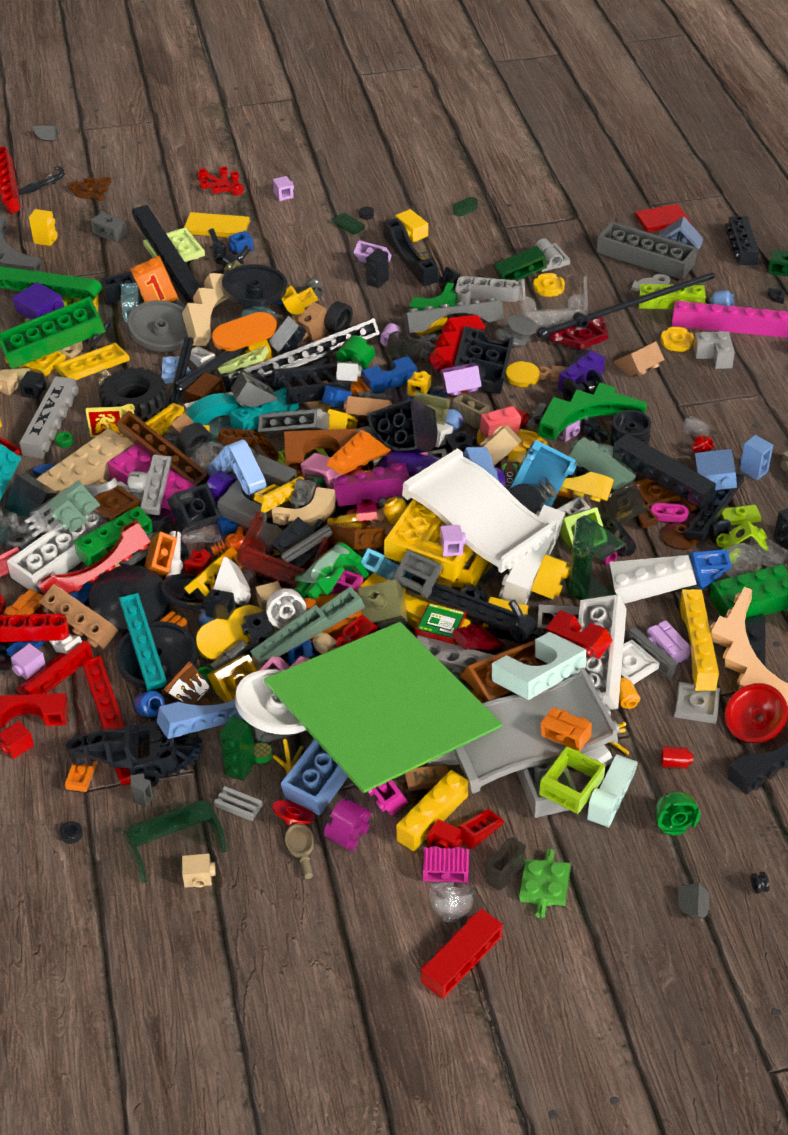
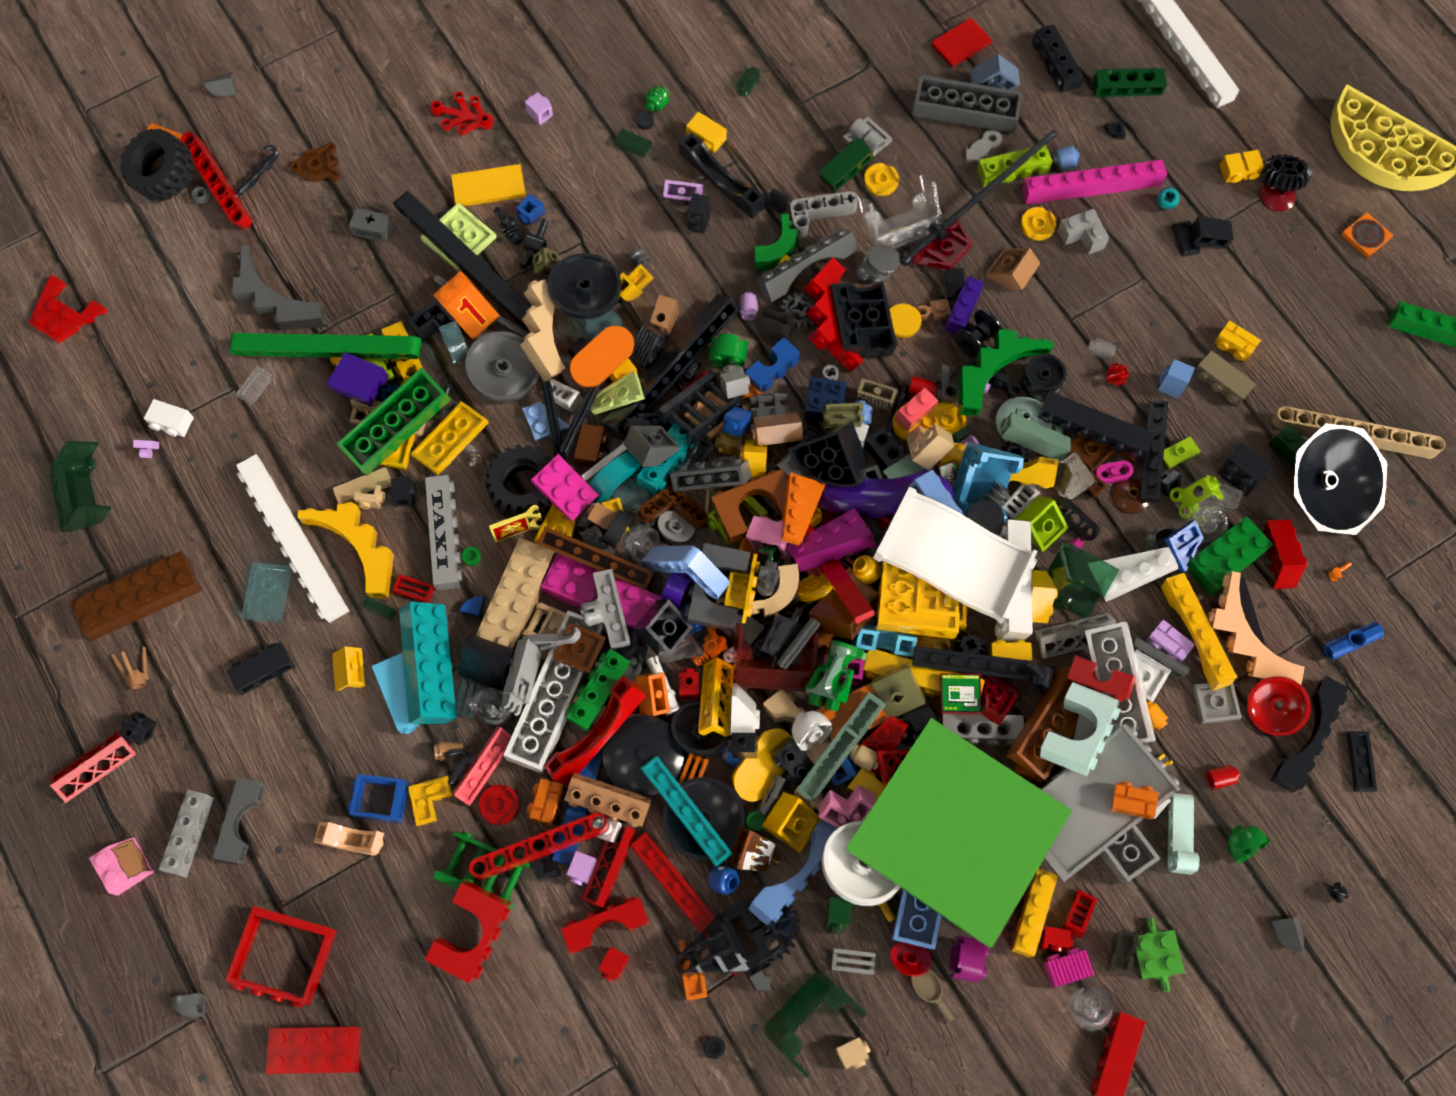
camera: 20 degrees left, 25 degrees up
(43, 227) = (300, 252): yellow brick -> none
(73, 506) = (546, 679): sand green plate -> none
(162, 400) = (564, 488): none -> dark pink plate
(338, 316) = (688, 300): black tyre -> none
(382, 199) = (656, 98): none -> green head
(419, 379) = (819, 384): yellow brick -> none
(420, 567) = (924, 643): dark grey plate -> none
(452, 540) = (947, 606): lavender brick -> none
(461, 378) = (859, 365): brick -> none
(564, 795) = (1169, 831): lime window -> none
(717, 467) = (1143, 405): medium blue brick -> none

